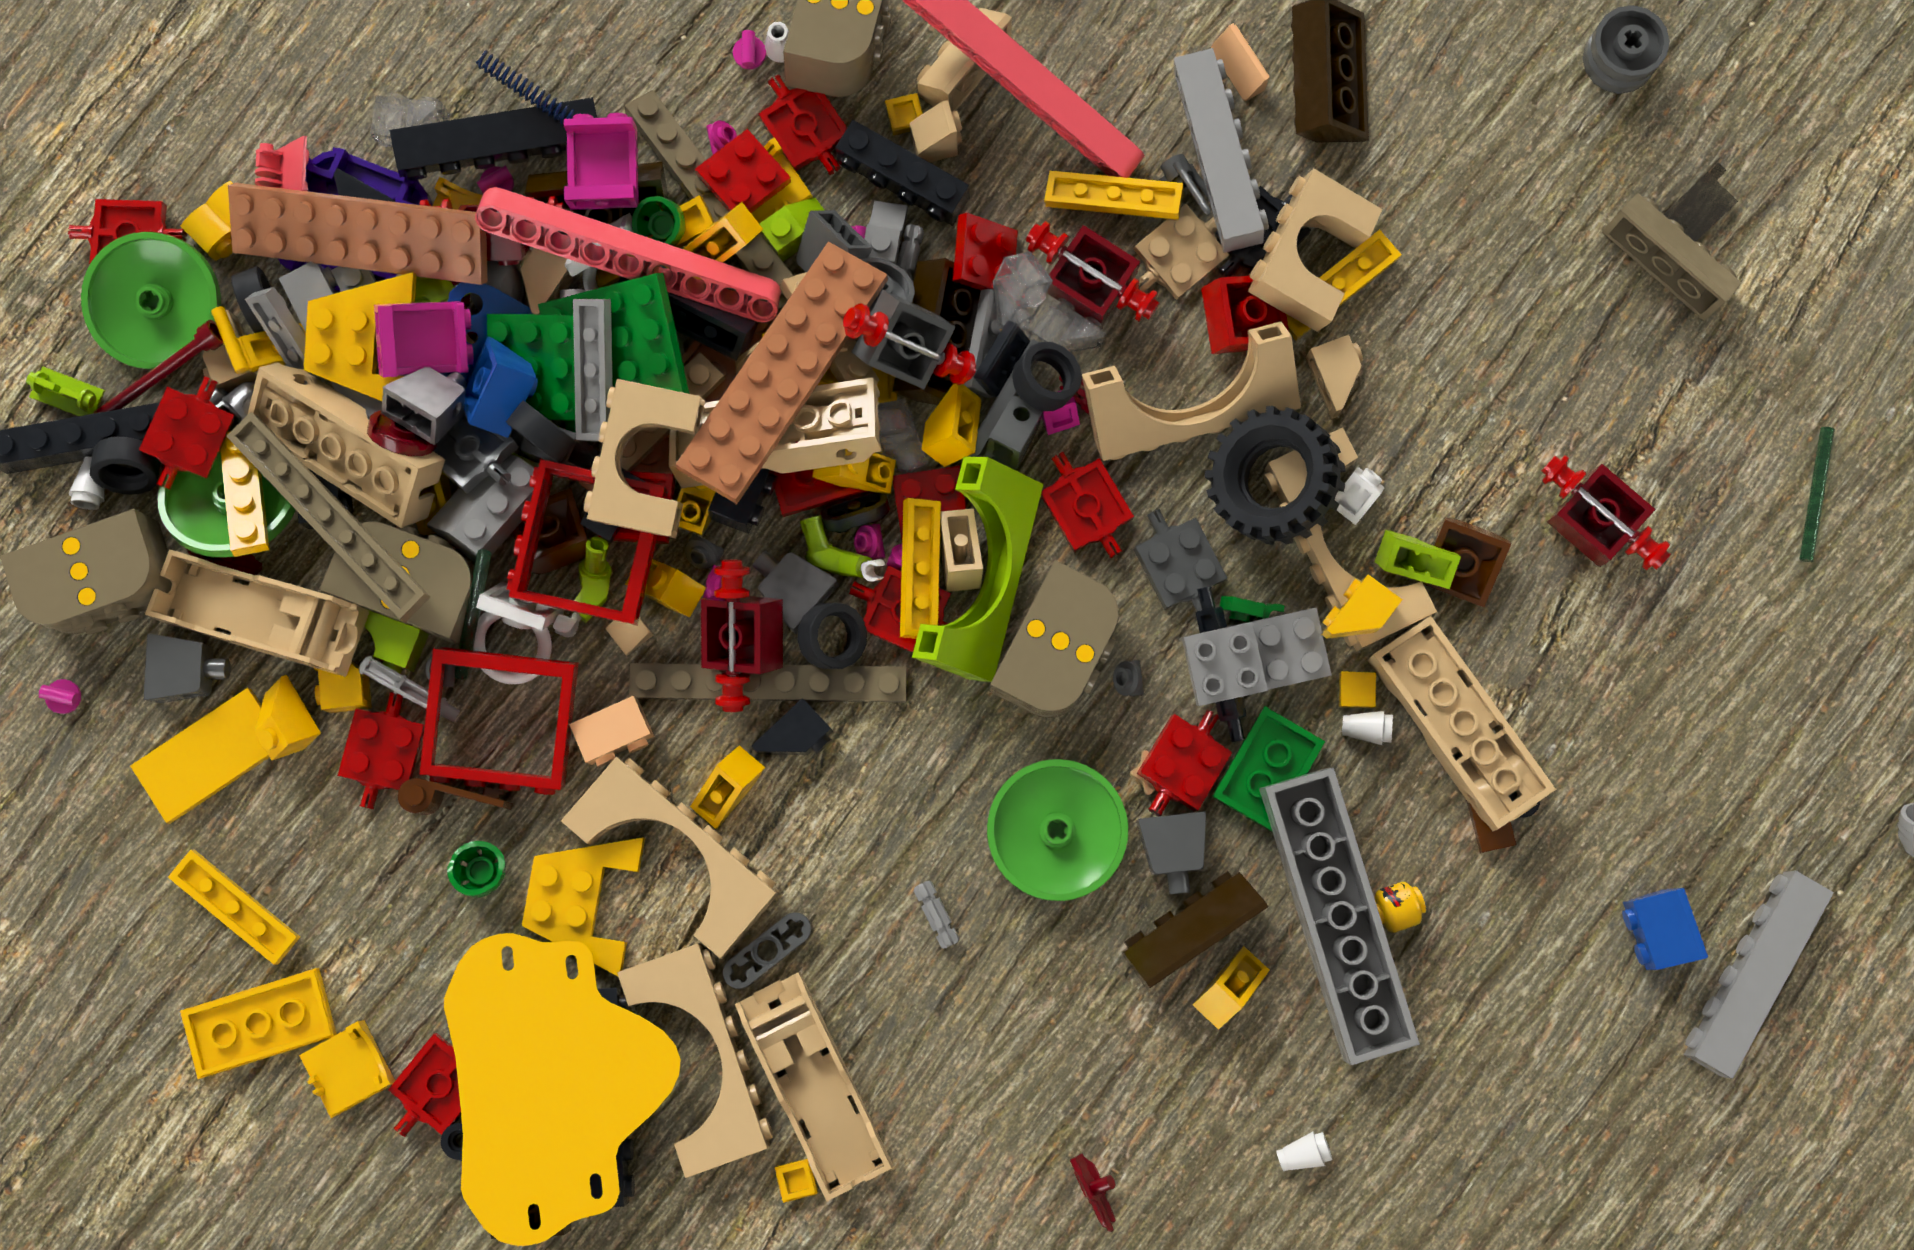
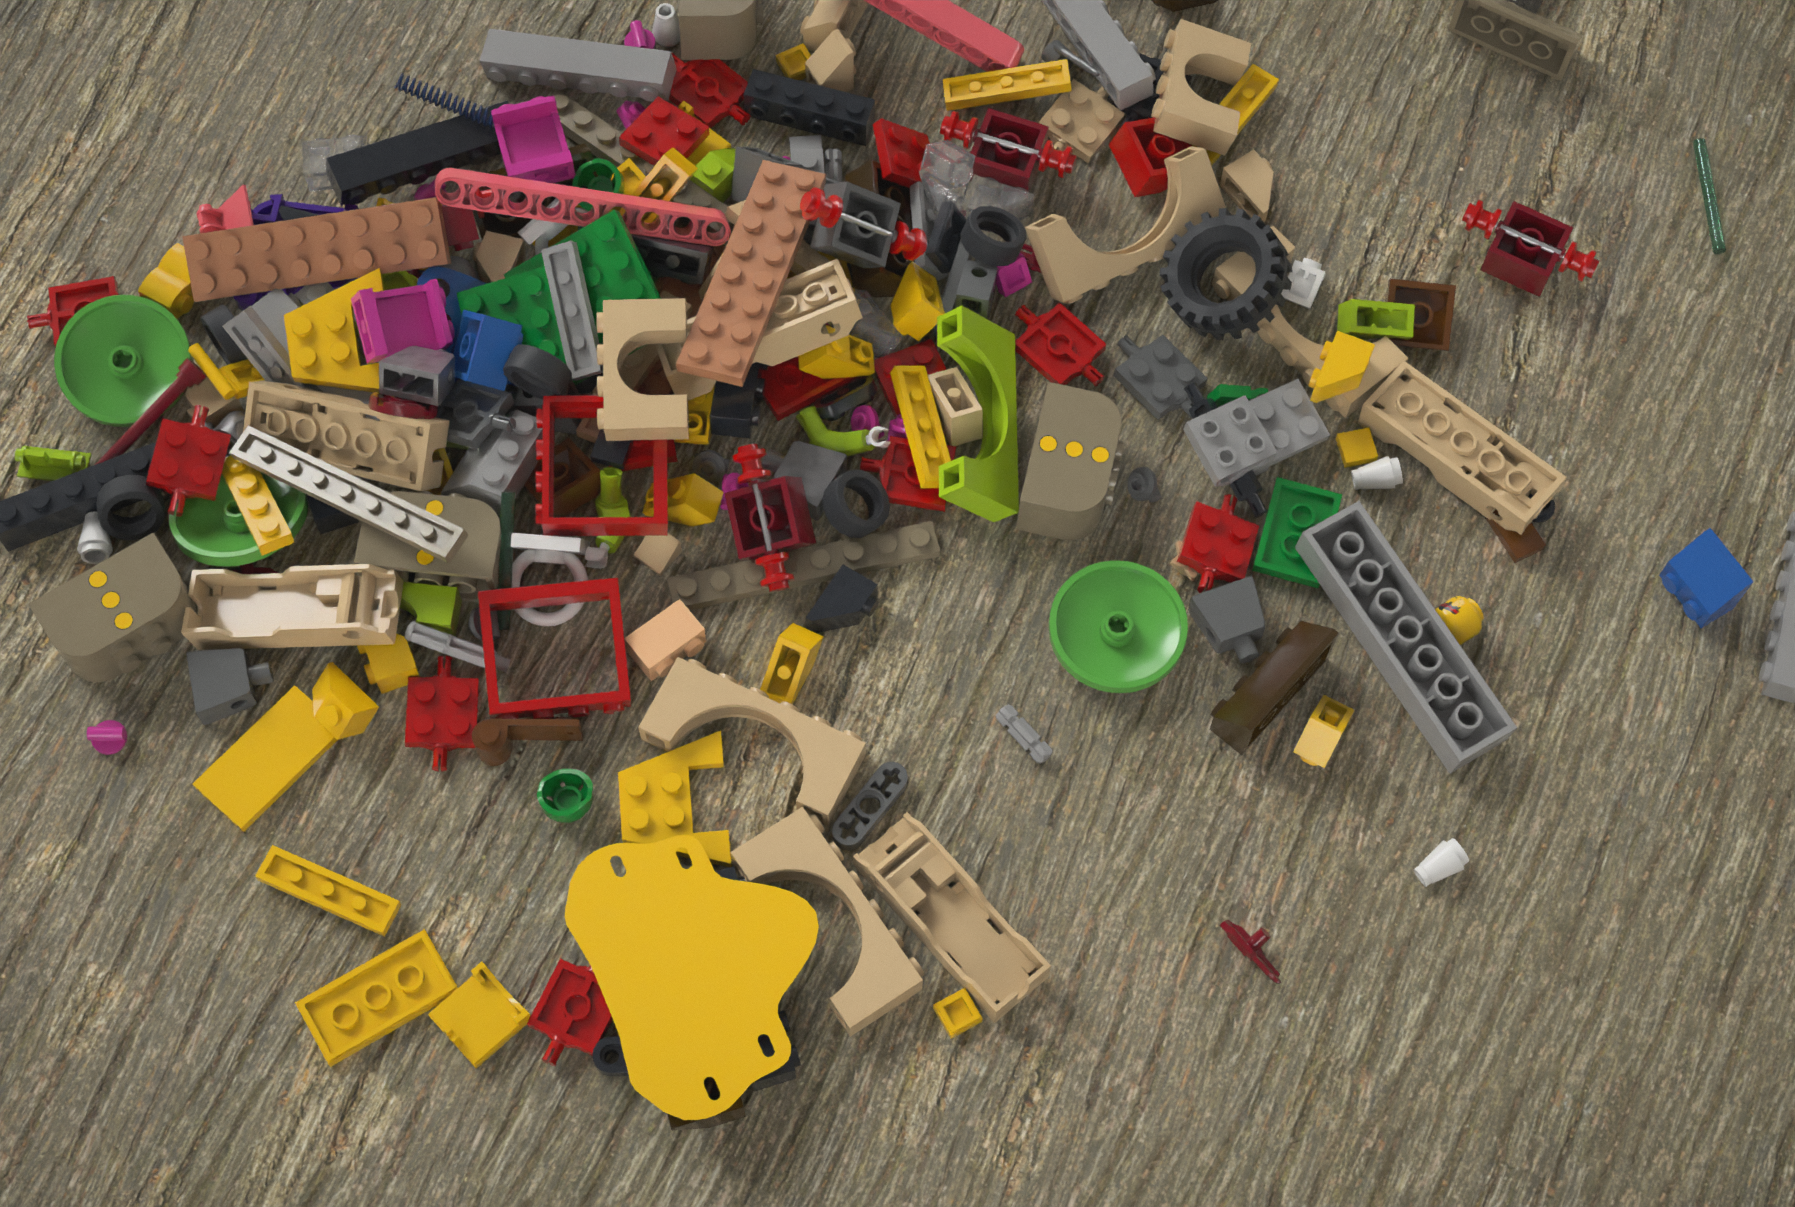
camera: 20 degrees left, 15 degrees down
(676, 69) = (578, 65): none -> light grey brick

